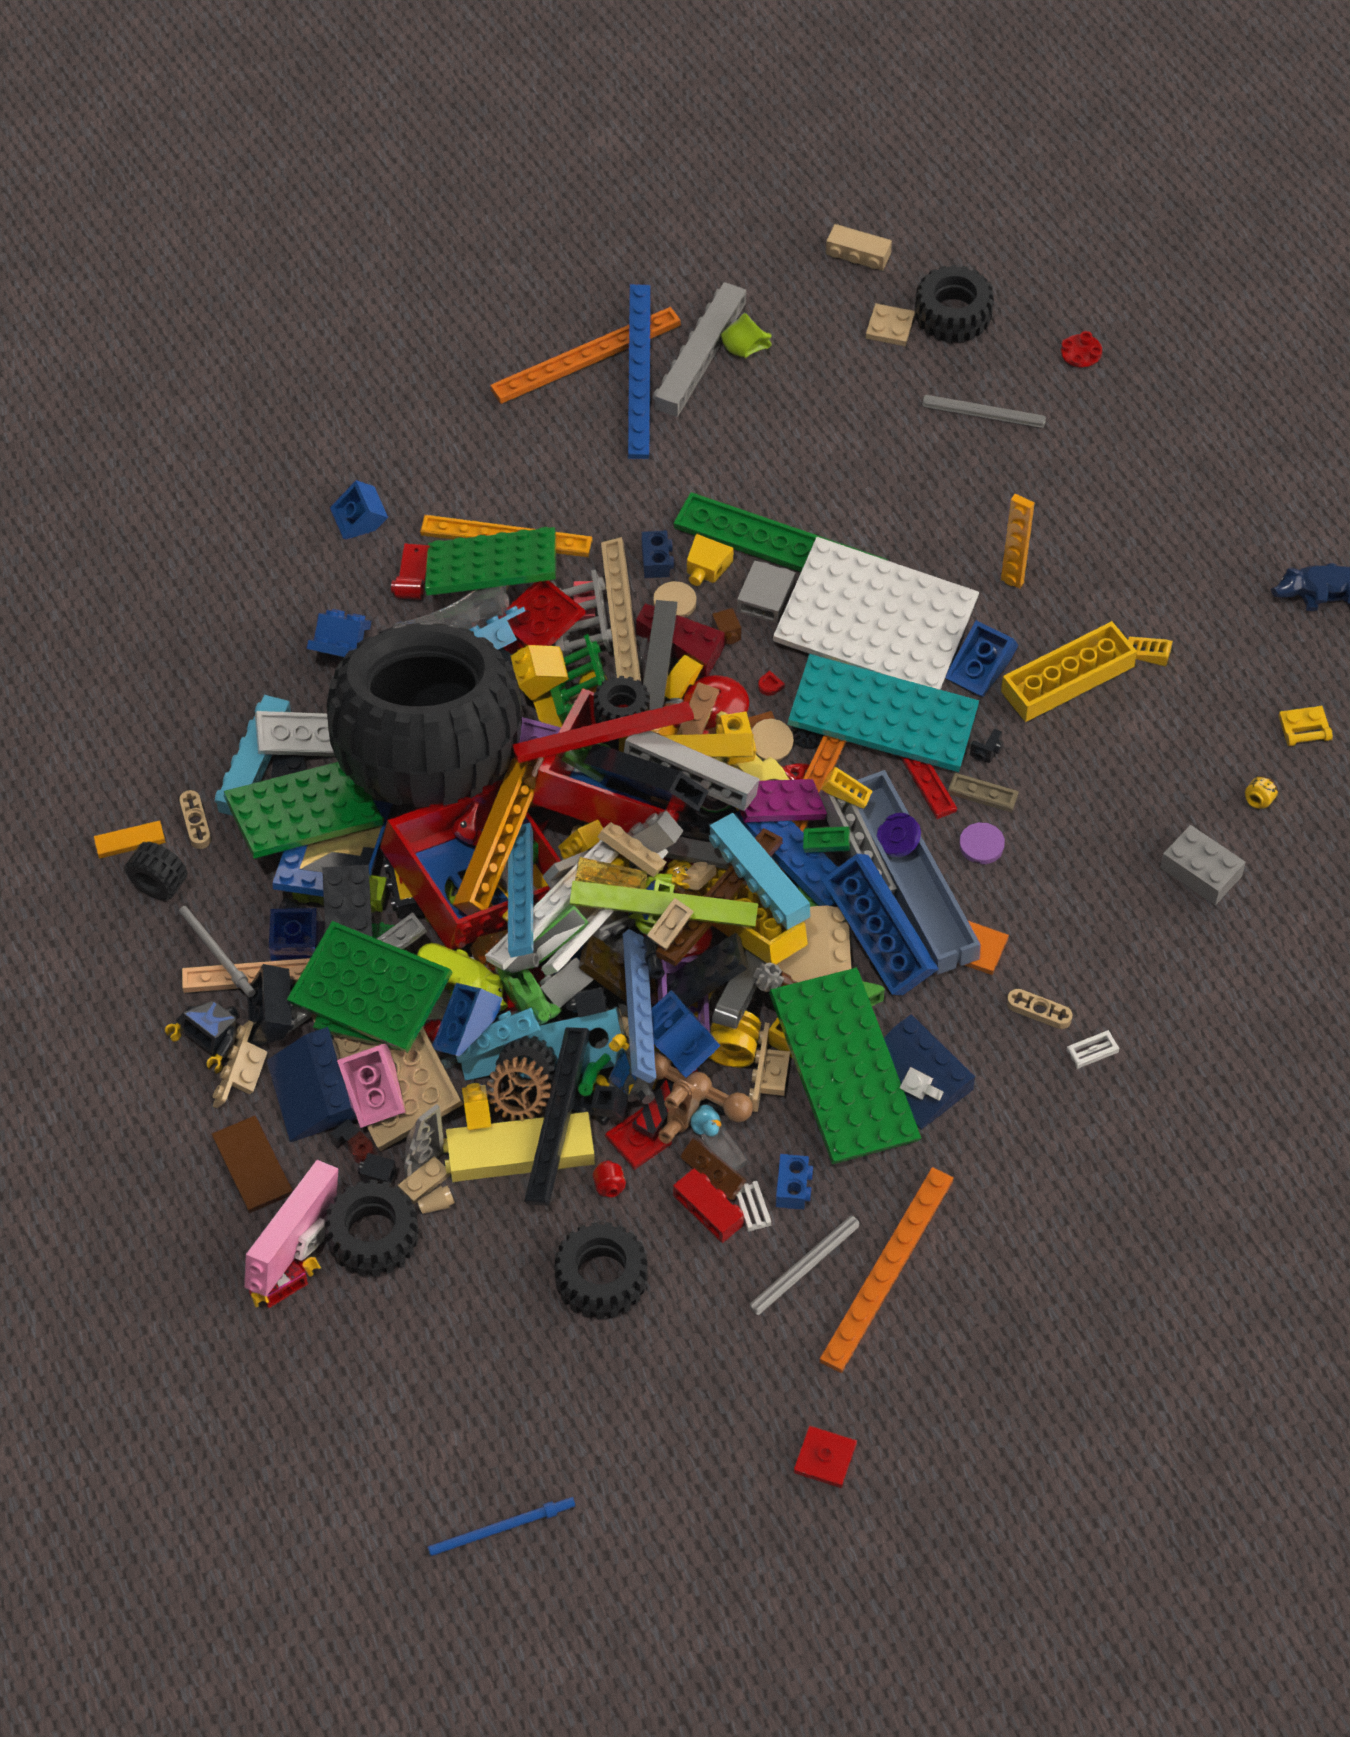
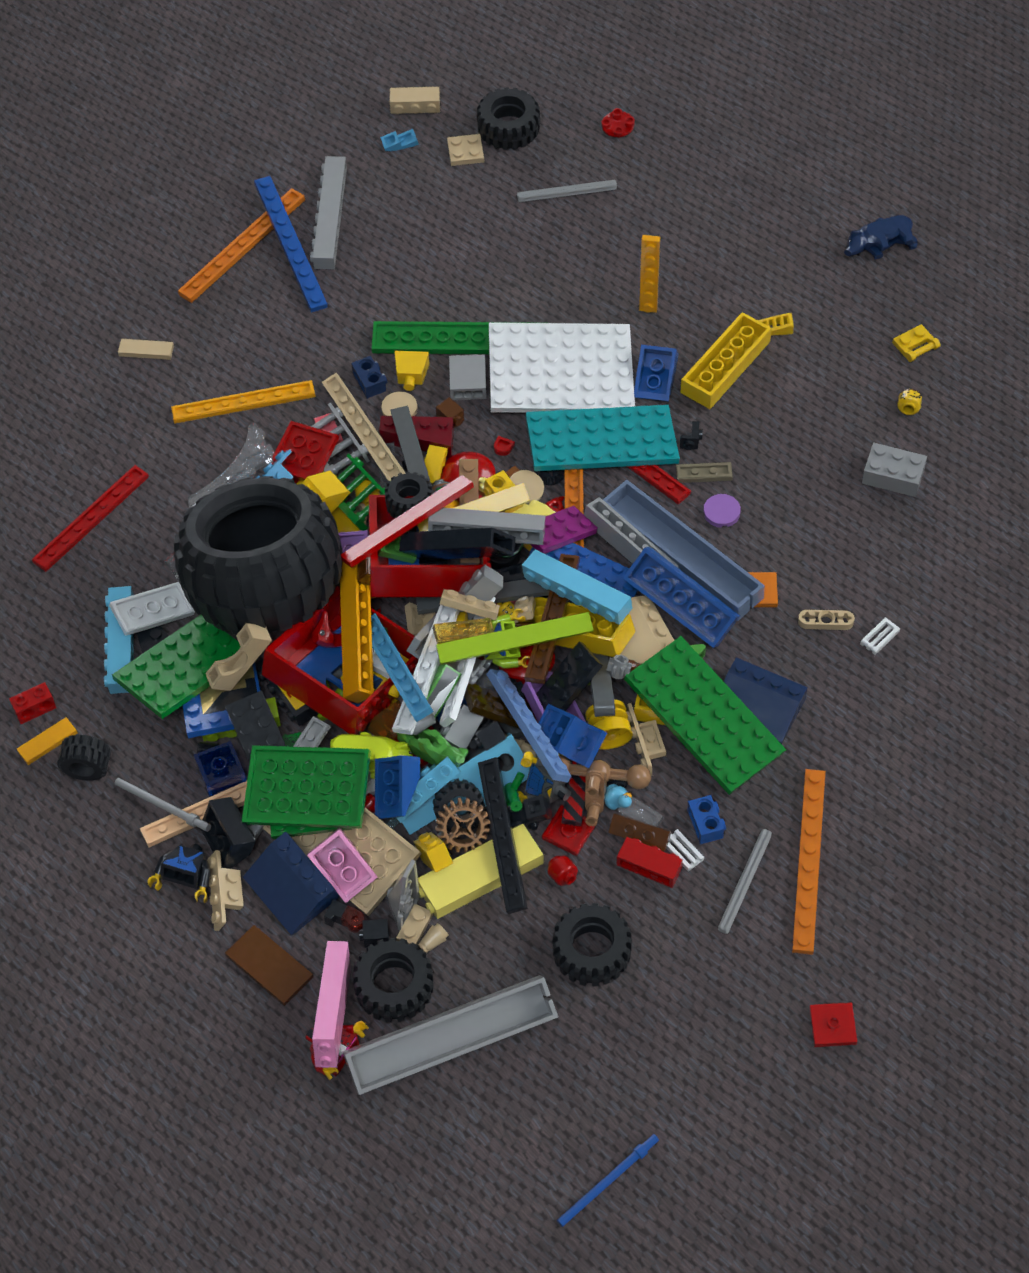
camera: 20 degrees left, 0 degrees up
(131, 793) = (32, 703): none -> red brick
(196, 811) = (94, 698): tan beam -> none
(283, 610) = (90, 518): none -> red tile
(310, 1239) = (349, 1007): white tile -> none
(338, 632) = (147, 519): blue bracket -> none
(344, 831) = (227, 672): none -> tan arch
(358, 510) = (116, 420): blue slope -> none
(403, 1308) = (449, 1034): none -> light grey piece
(412, 572) = (182, 453): red door -> none
(427, 440) = (145, 349): none -> tan tile
(491, 561) = (244, 423): green plate -> none
(581, 840) = (422, 614): yellow brick -> none
(654, 963) = (520, 684): black pin -> none
(670, 923) = (528, 651): tan plate -> none
(745, 337) = (361, 192): lime piece -> none
(821, 291) = (396, 142): none -> dark azure slope
(826, 839) = (609, 546): green plate -> none
(834, 786) = (600, 502): yellow slope -> none
(899, 834) = (661, 524): dark purple tile -> none
(919, 1085) = (767, 709): white plate -> none

